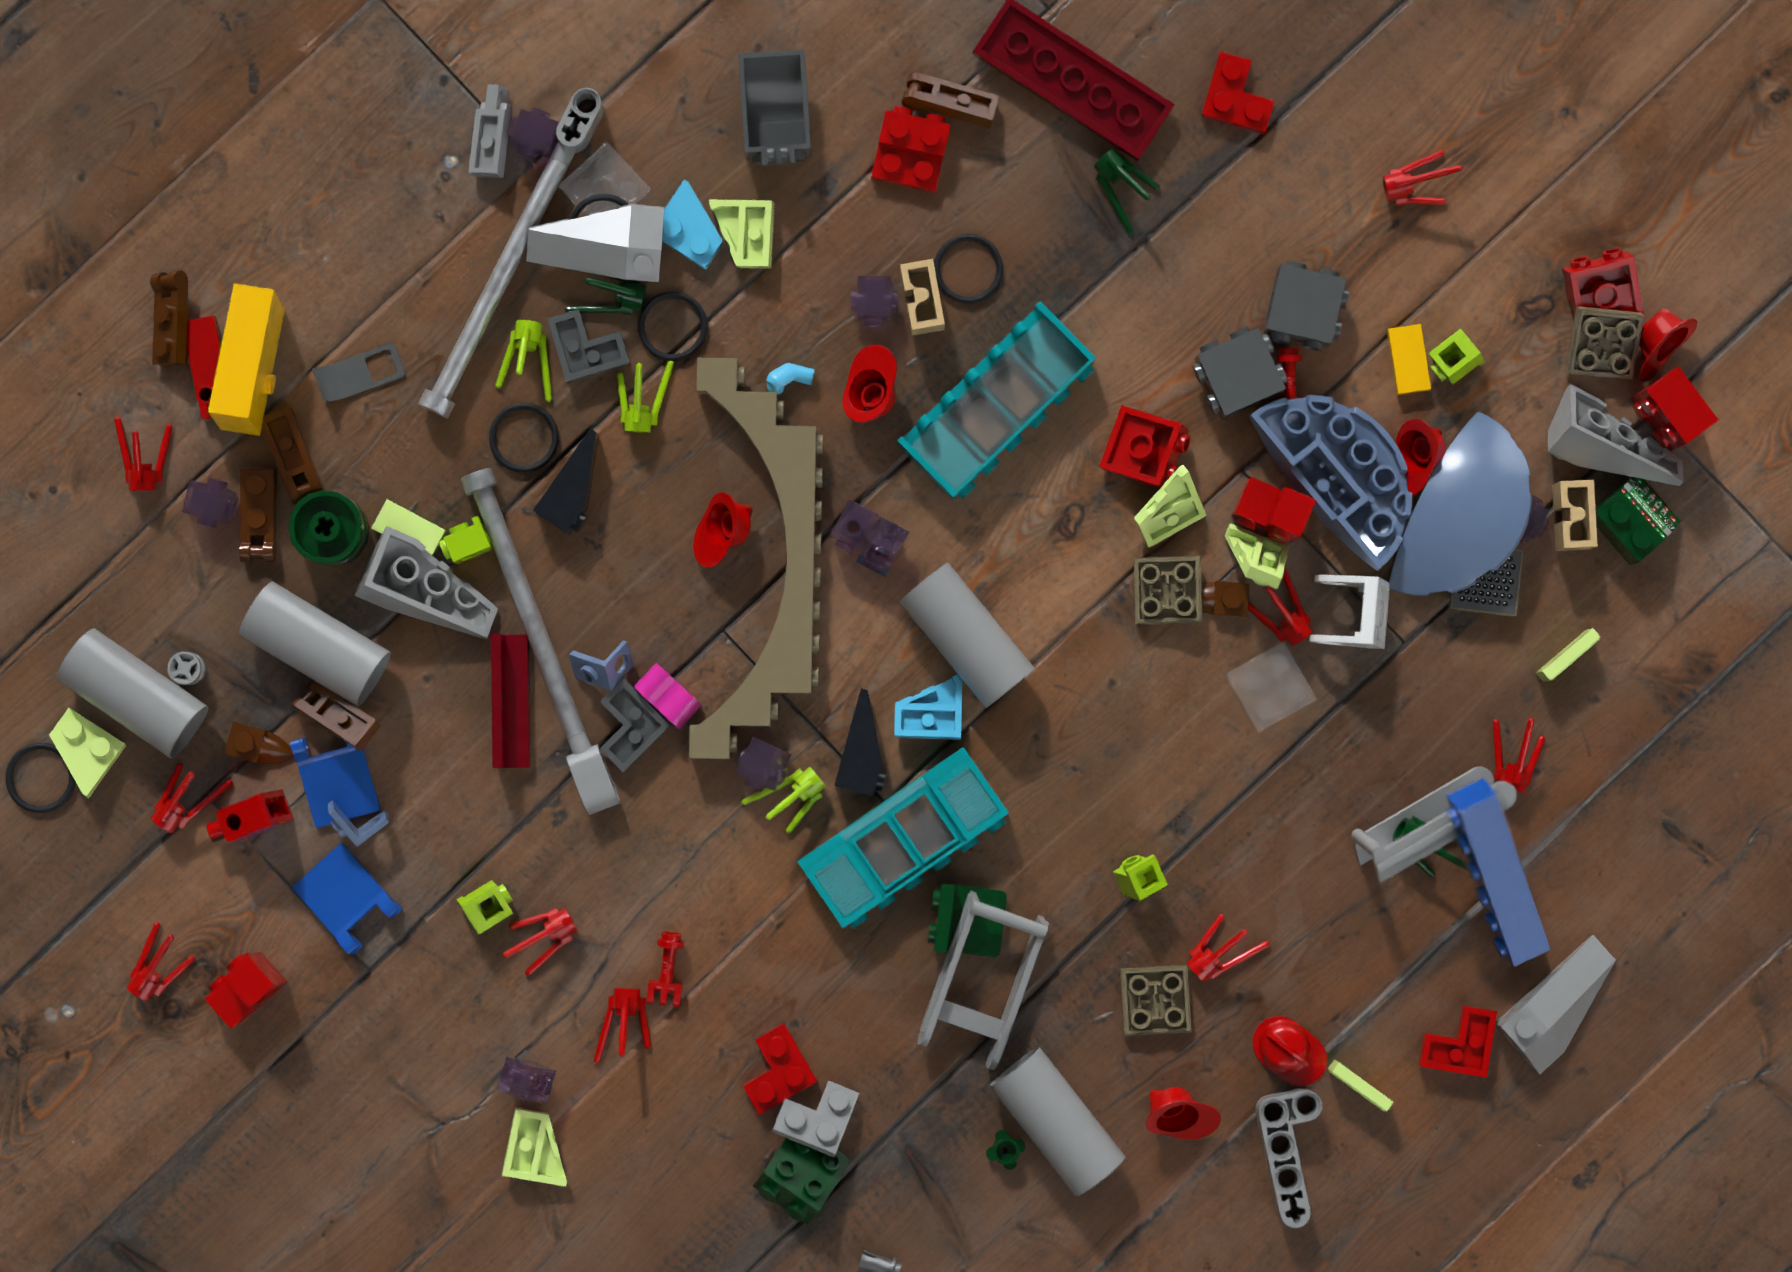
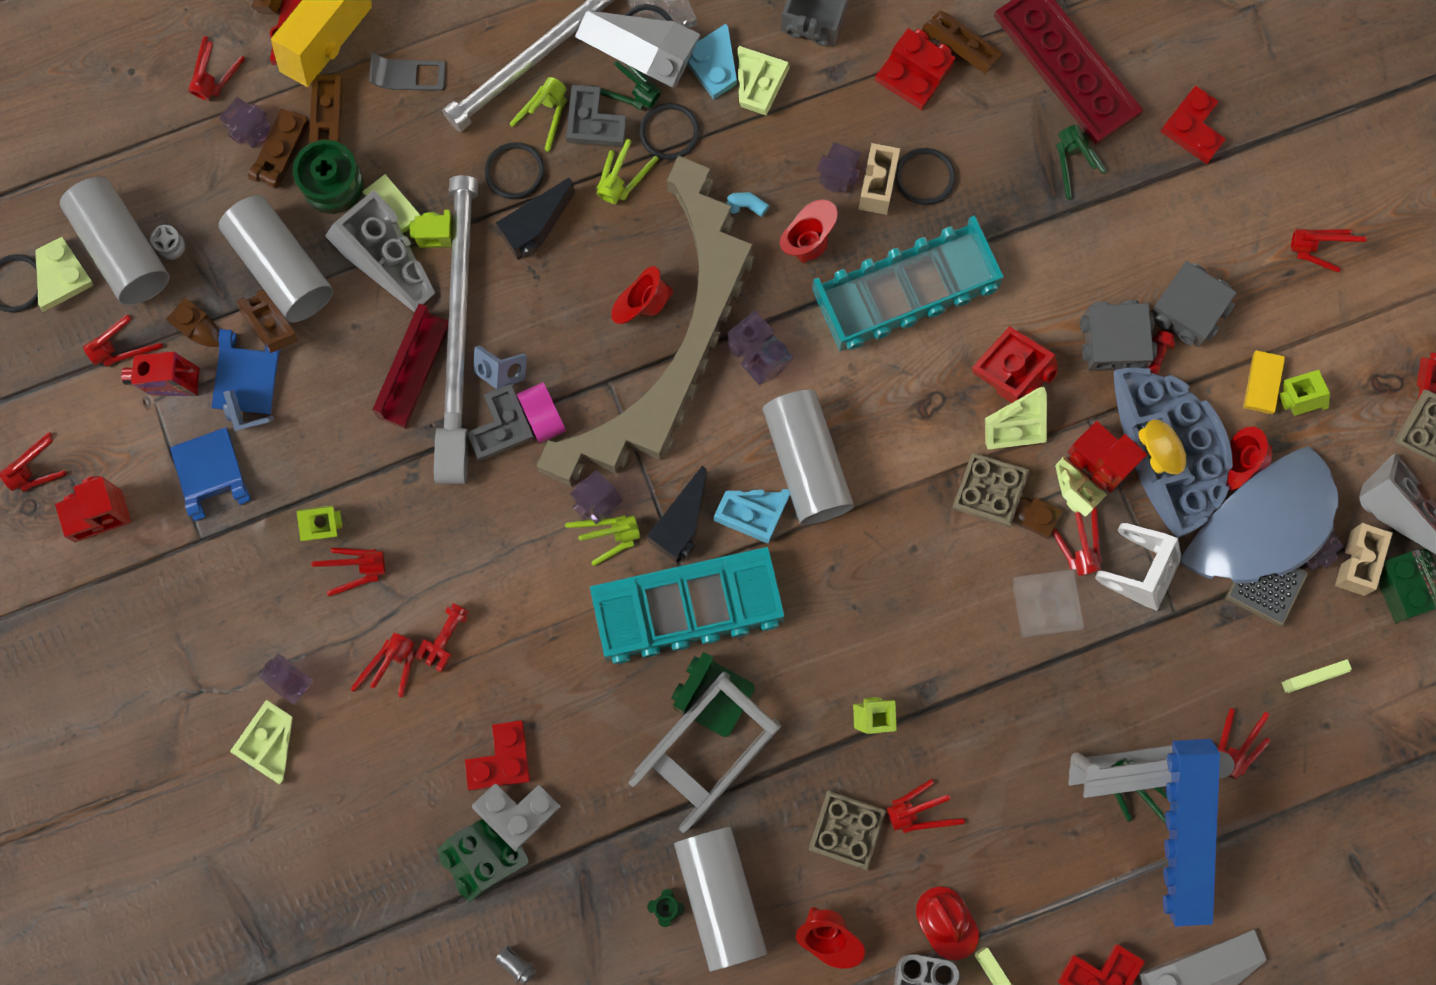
camera: 25 degrees right, 10 degrees down
(1330, 483) = (1164, 447): none -> yellow dish

